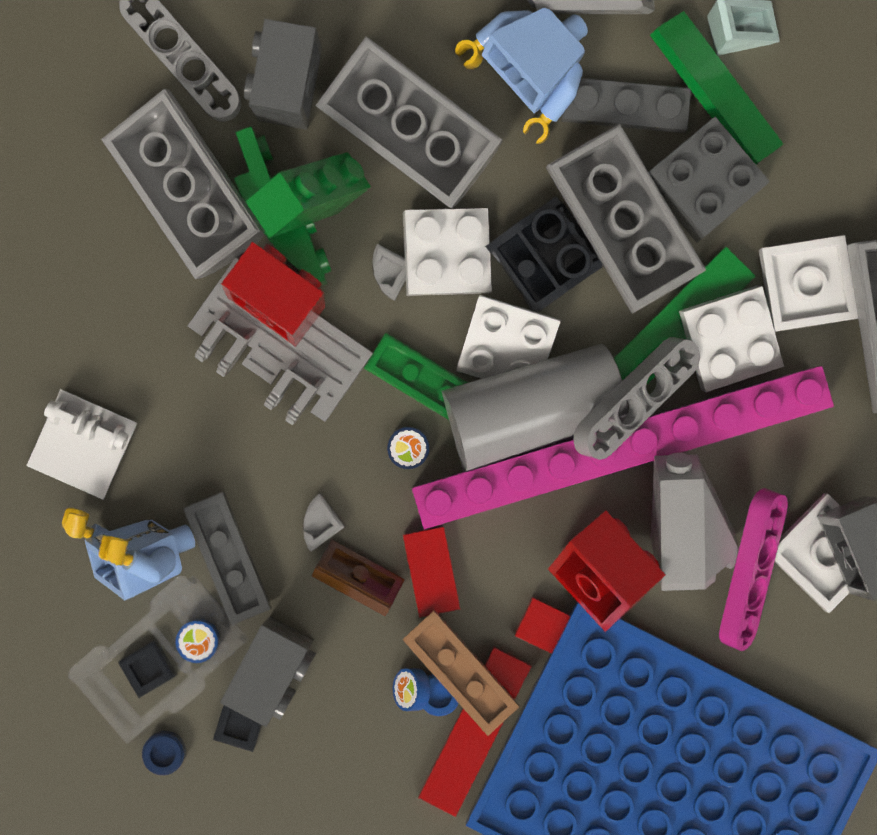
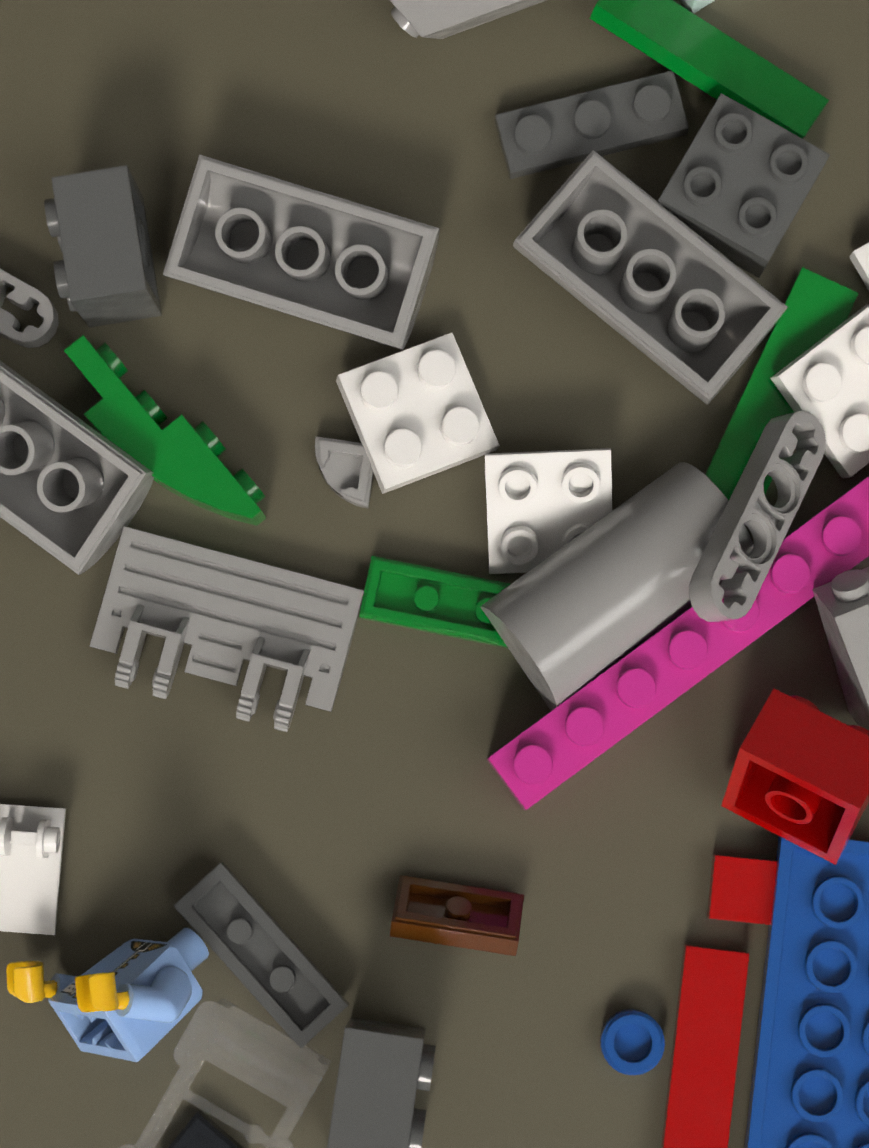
camera: 15 degrees left, 5 degrees down
(197, 641) = (260, 1089): tile -> none
(275, 293) = (197, 551): red brick -> none
(308, 193) = (196, 397): green brick -> none
(320, 522) = (375, 857): light grey tile -> none
(408, 448) = (461, 706): tile -> none
(411, 689) = (590, 1048): tile -> none
(431, 571) = (558, 870): red tile -> none
(461, 672) = (653, 997): medium nougat plate -> none
(534, 57) = (442, 102): light blue torso -> none
(536, 251) = (542, 372): black slope -> none

